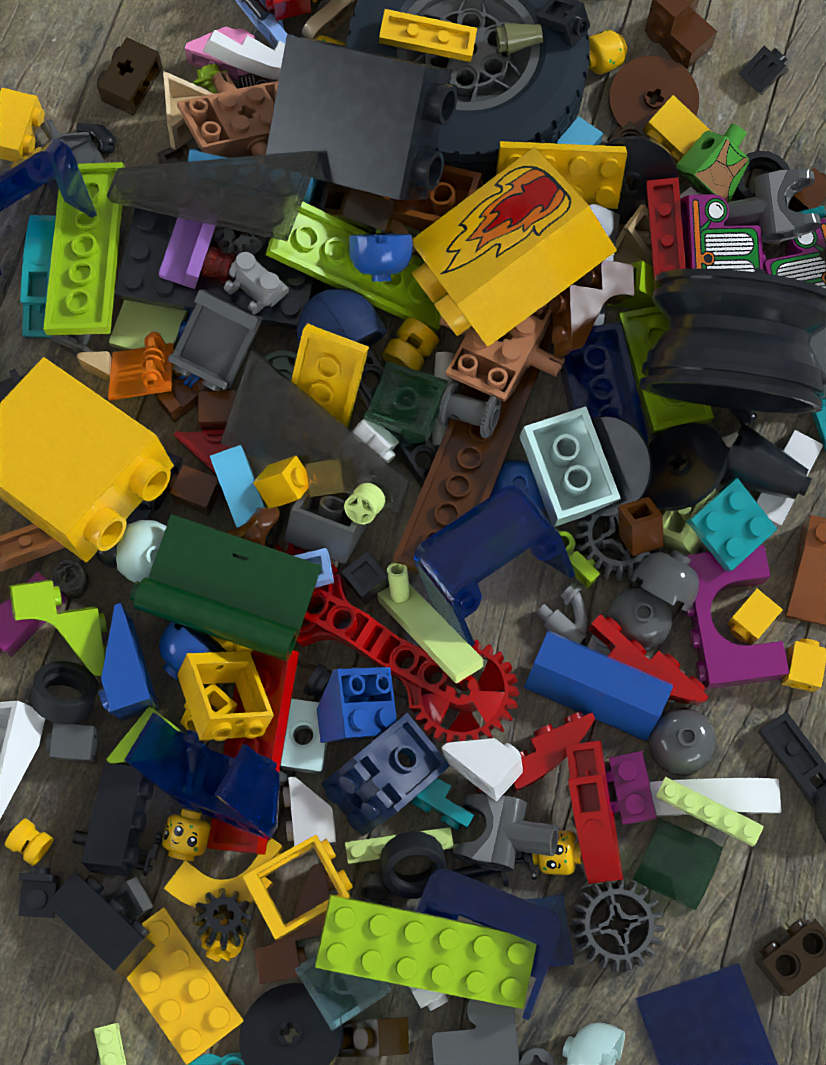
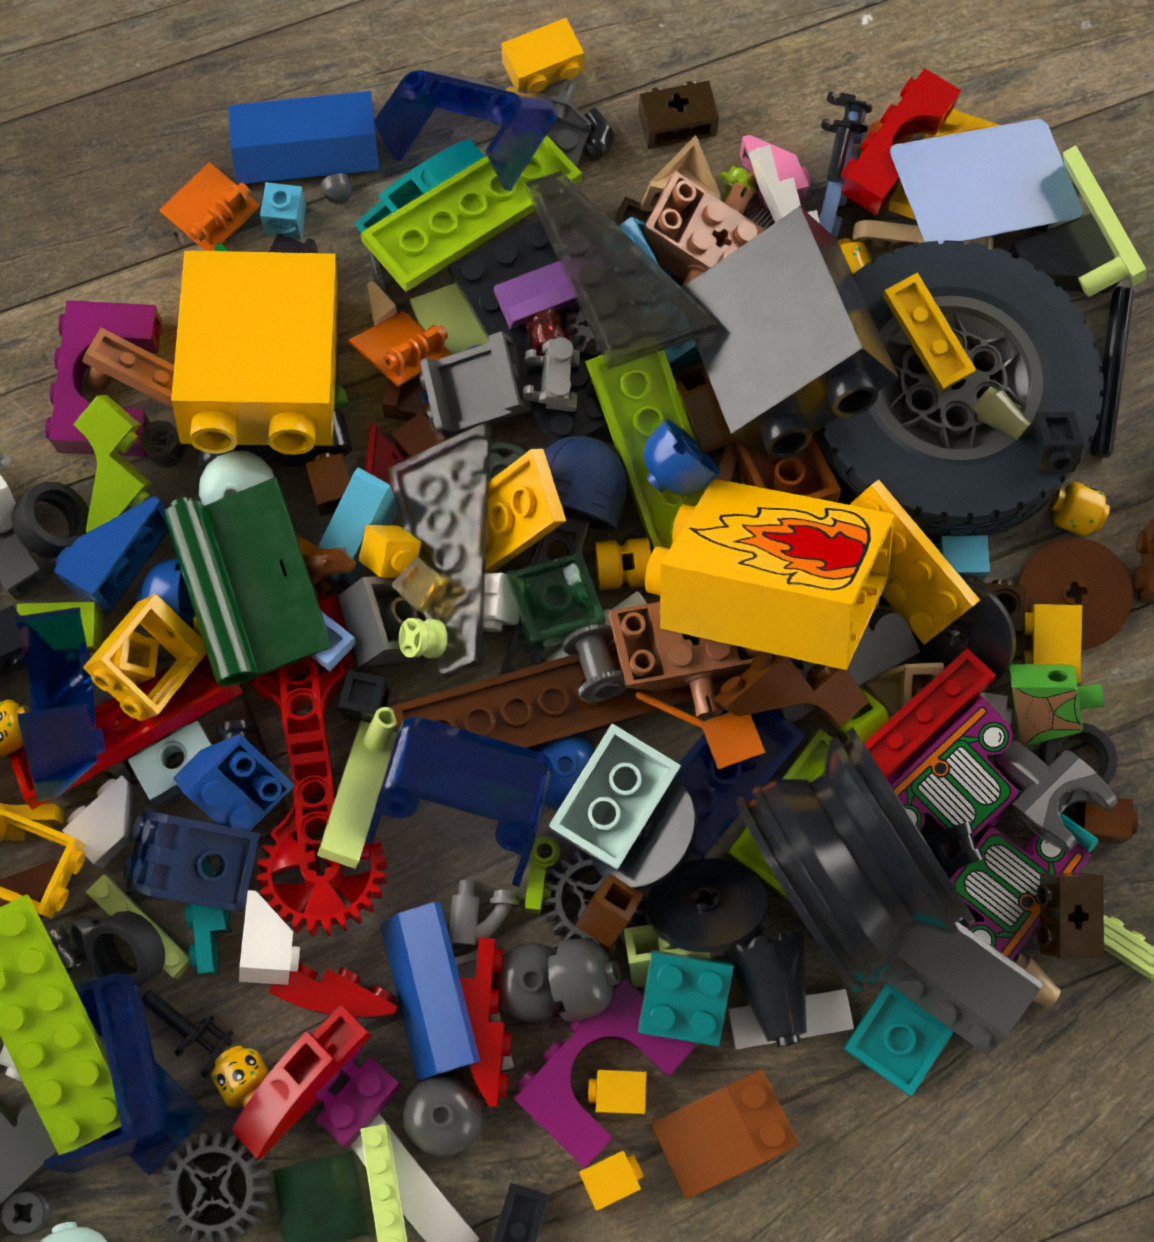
camera: 50 degrees right, 0 degrees up
(504, 834) = (218, 1015): dark grey connector -> none
(583, 367) = (728, 736): none -> orange piece

